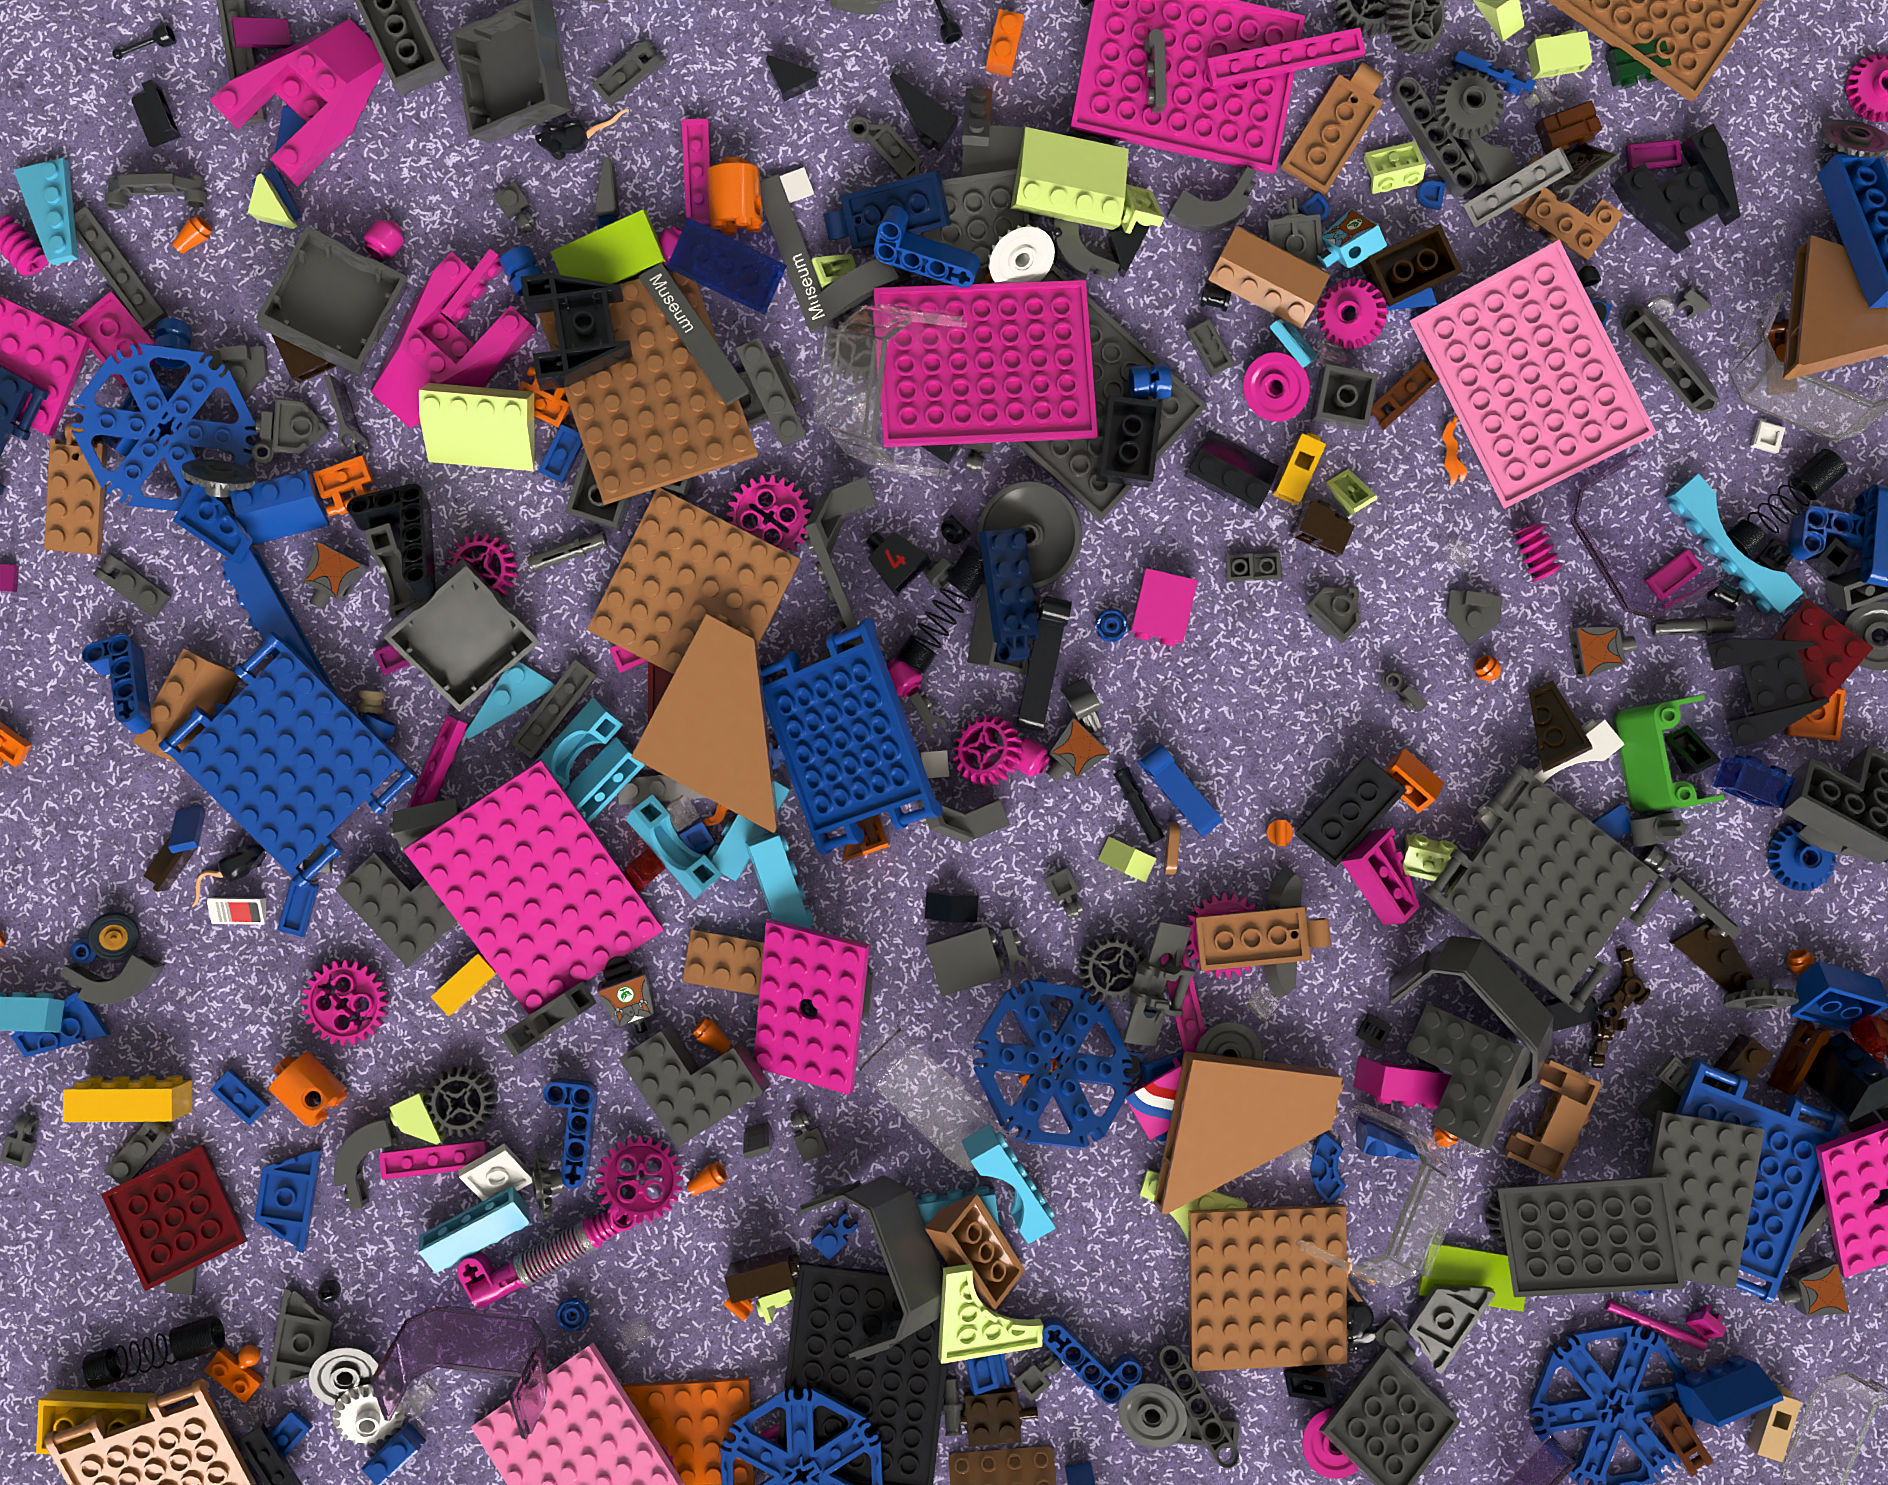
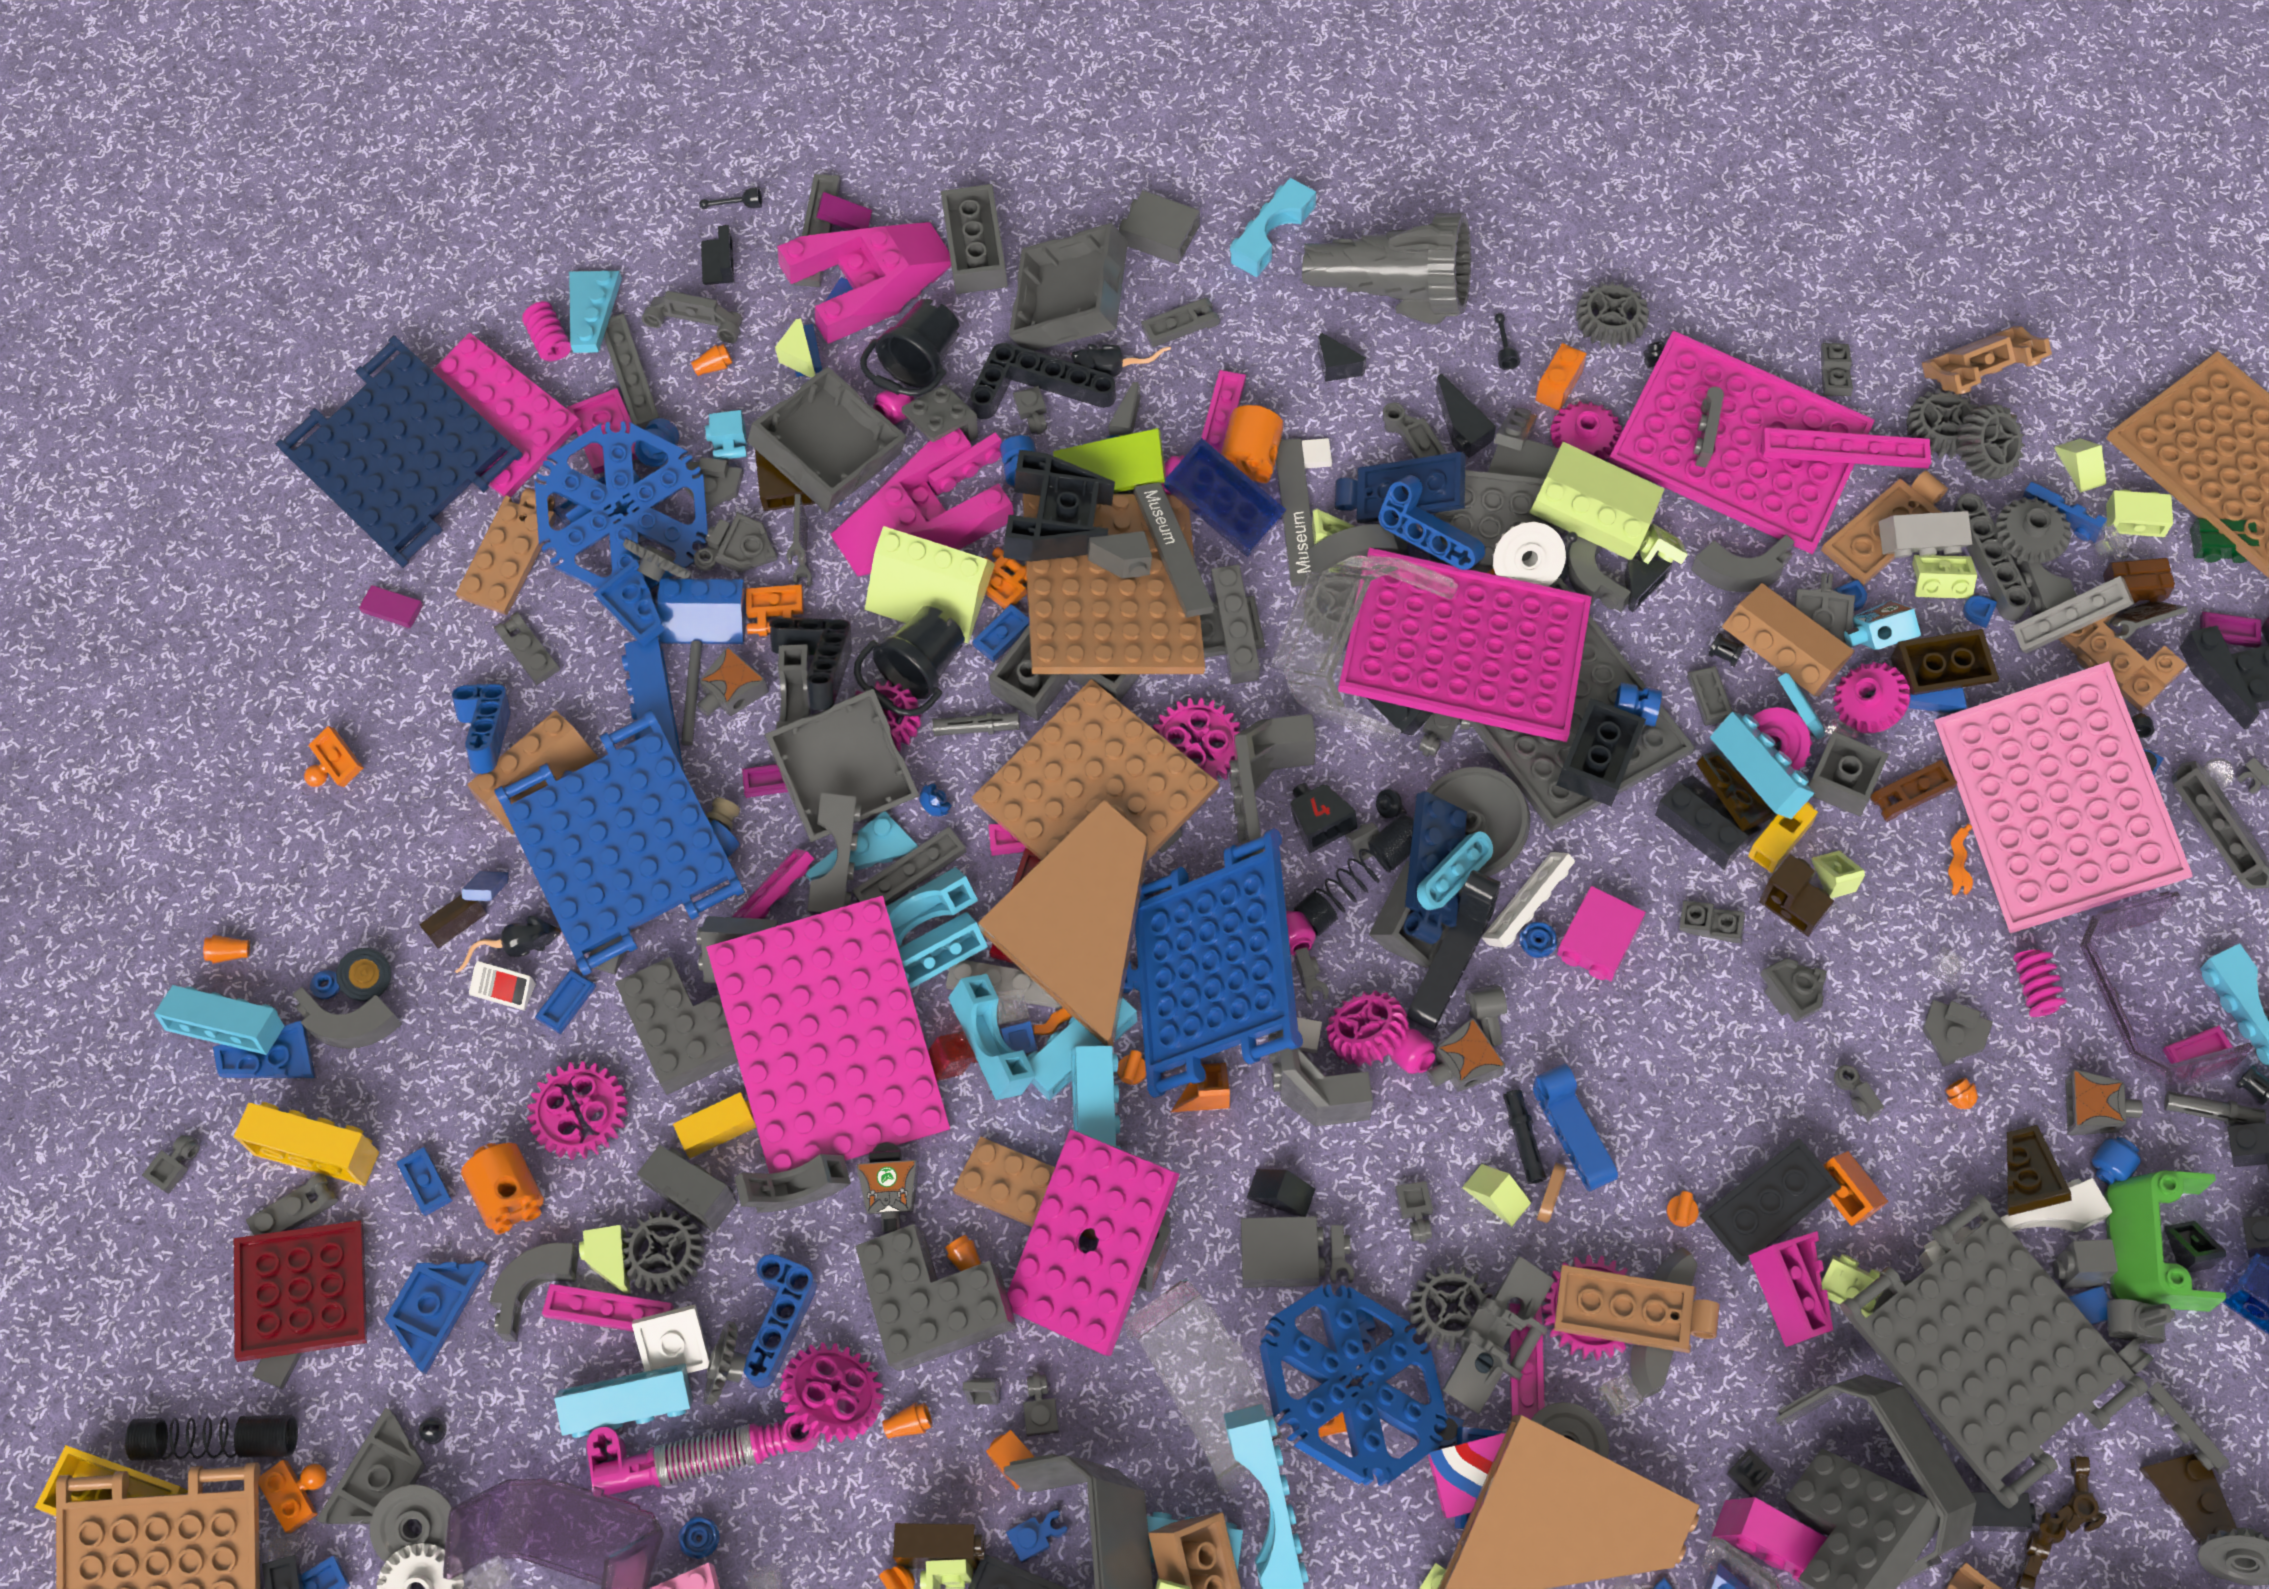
camera: 20 degrees right, 25 degrees down
(235, 311) = (727, 434): none -> medium azure brick
(300, 588) = (691, 693): none -> dark grey bar
(383, 177) = (914, 349): none -> black piece
(432, 244) = (941, 413): none -> dark grey bracket
(461, 1043) = (688, 1187): none -> dark grey wedge
(474, 688) = (837, 816): none -> dark grey arch
(492, 507) = (914, 658): none -> black piece
(509, 171) = (1040, 374): none -> black beam
(554, 637) = (934, 801): none -> blue plate
(650, 358) = (1121, 554): none -> dark grey slope
(798, 1185) = (1005, 1450): none -> orange brick
(799, 835) = (1132, 1068): none -> orange plate
(1029, 597) = (1454, 870): none -> medium azure plate
(1041, 112) = (1597, 440): none -> dark pink gear
(1094, 590) = (1528, 899): none -> white plate
(1251, 440) = (1734, 791): none -> dark brown wing
(1270, 413) = (1762, 765): none -> medium azure brick
(1372, 132) = (1925, 534): none -> light grey brick
(1609, 795) = (2085, 1264): none -> dark grey brick
(1620, 695) = (2116, 1160): none -> blue head

